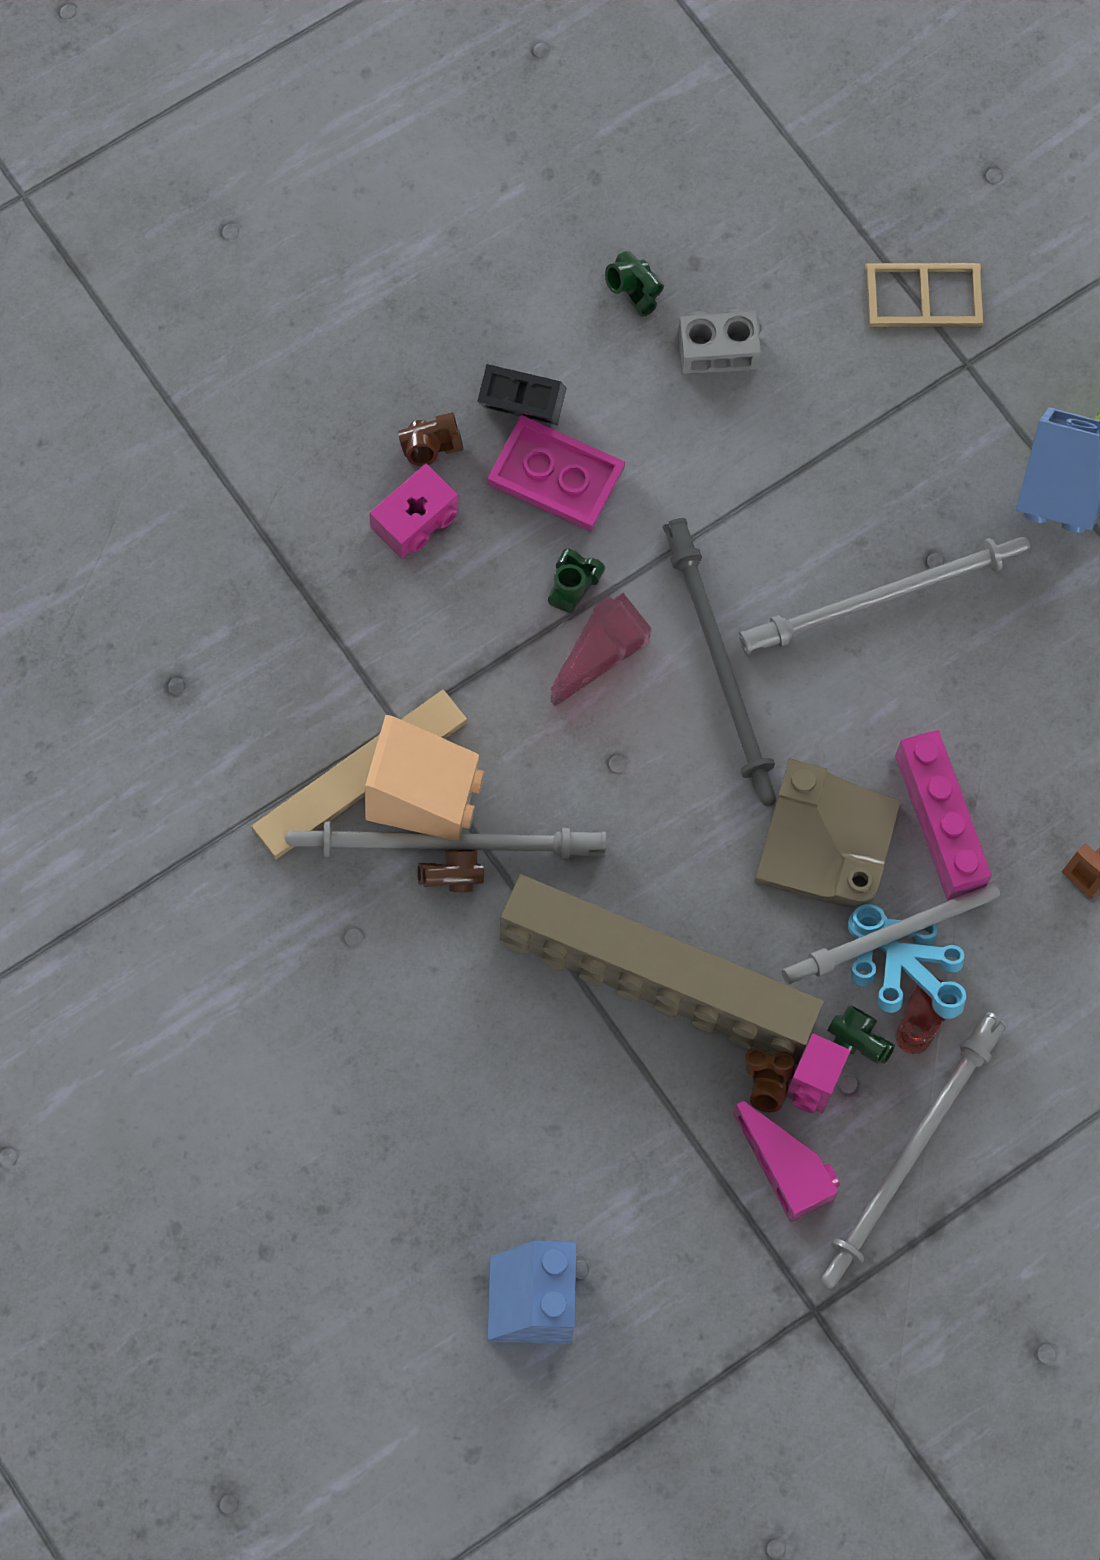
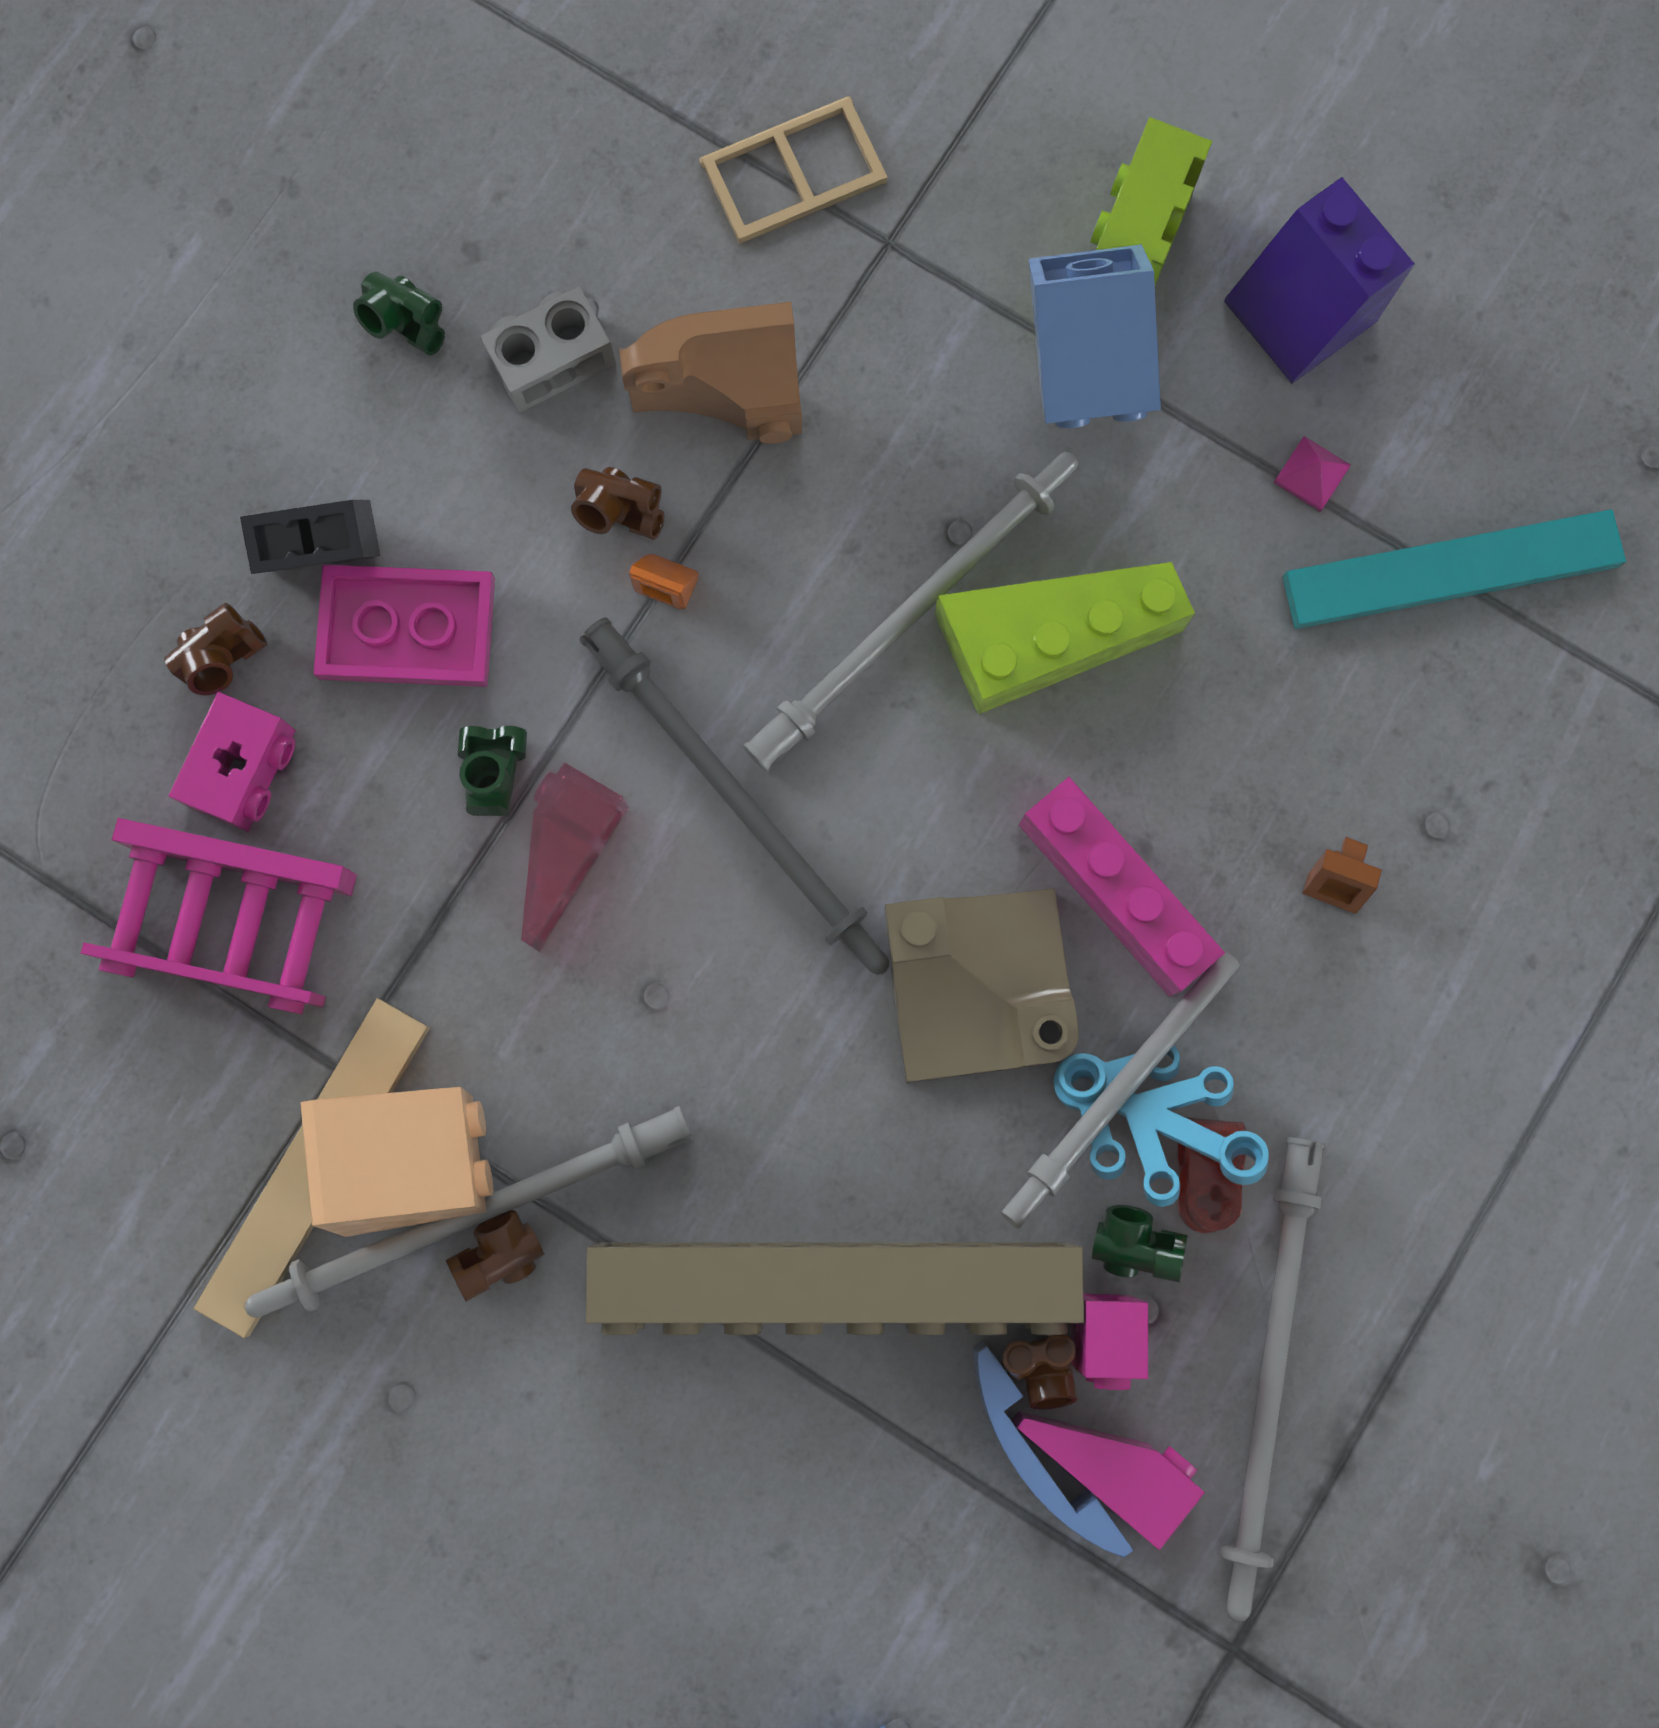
camera: 20 degrees left, 10 degrees up
(372, 561) = (205, 861): none -> dark pink fence
(722, 449) = (613, 498): none -> reddish brown plate
(731, 513) = (663, 580): none -> orange slope
(757, 1182) = (1083, 1513): none -> medium blue slope
(824, 395) = (722, 367): none -> medium nougat slope
(971, 642) = (1053, 629): none -> lime wedge

